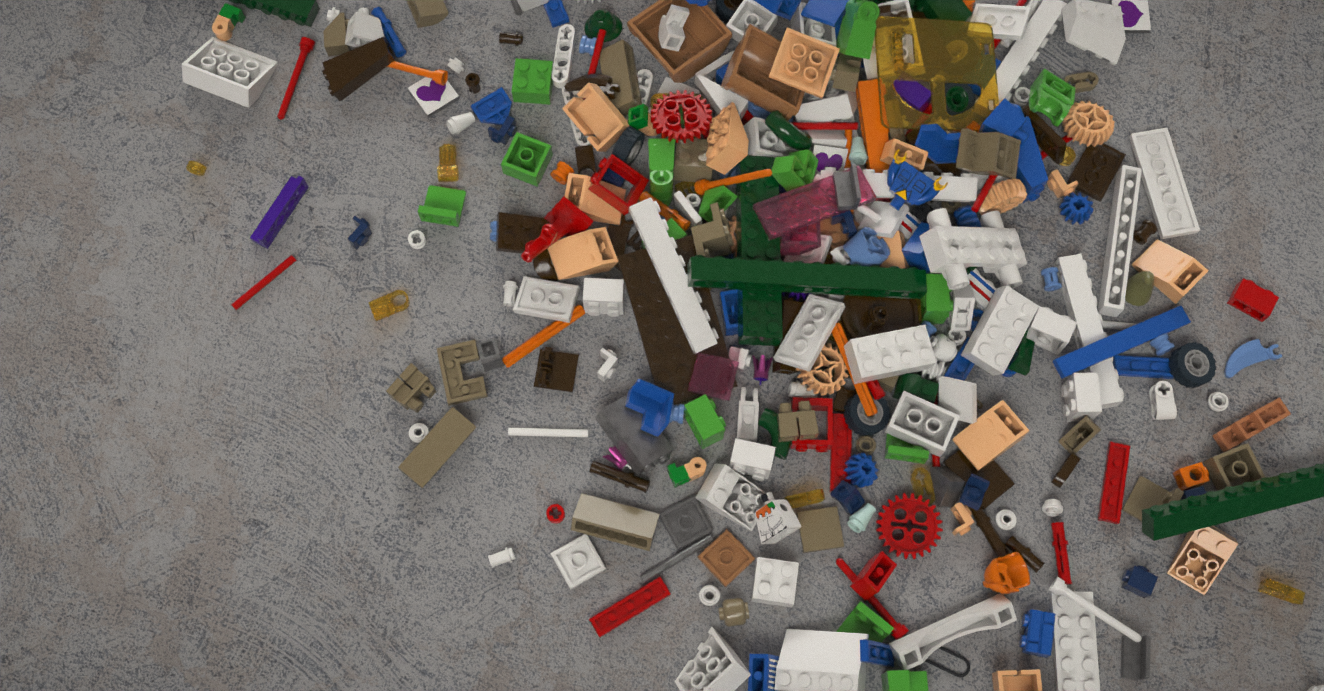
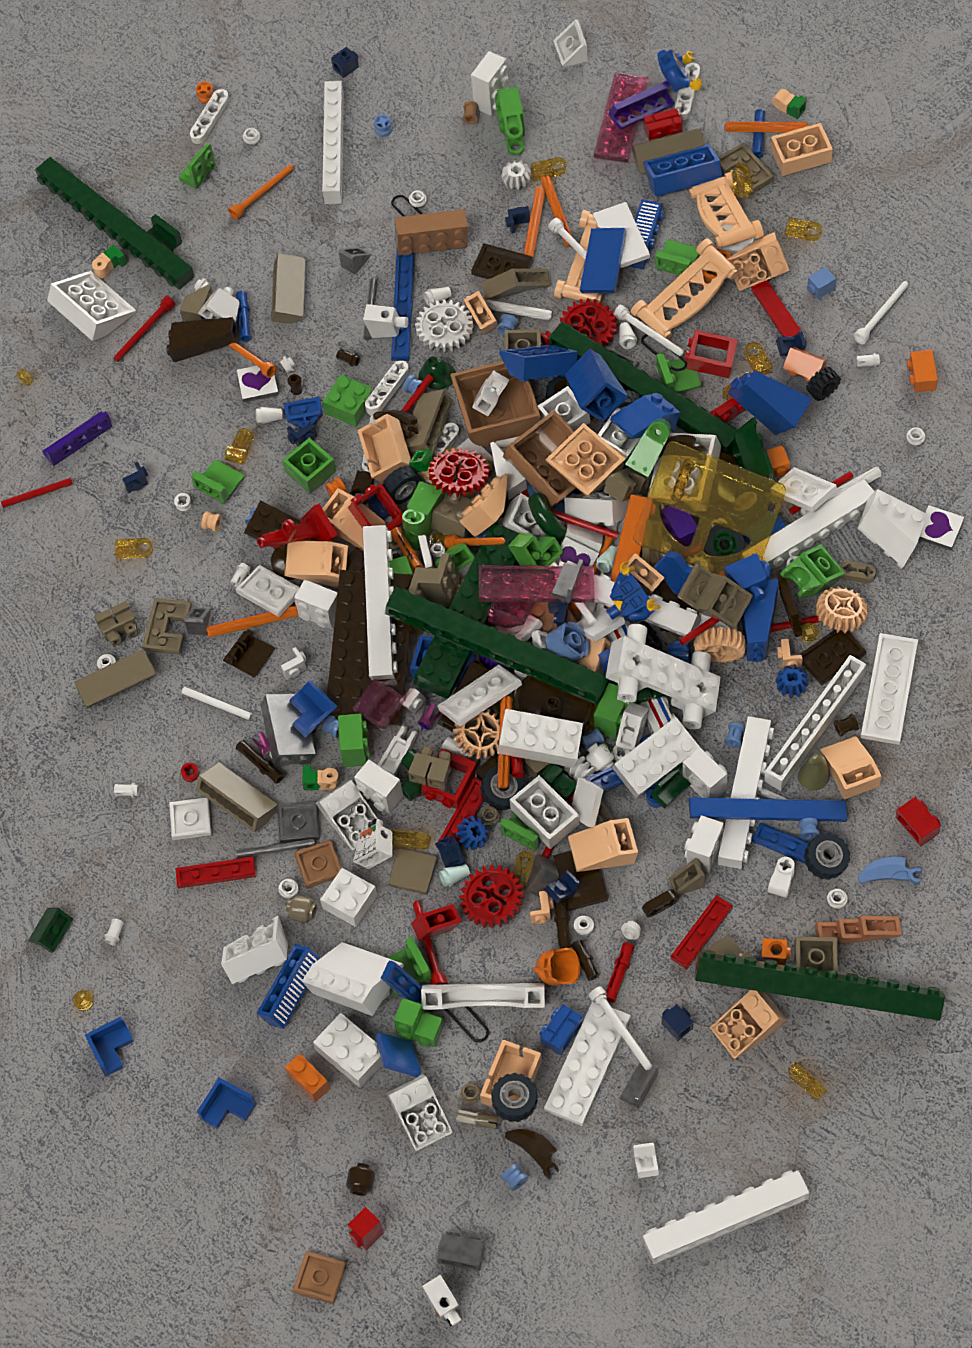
camera: 30 degrees right, 10 degrees down
(456, 249) = (211, 521): none -> light nougat wheel

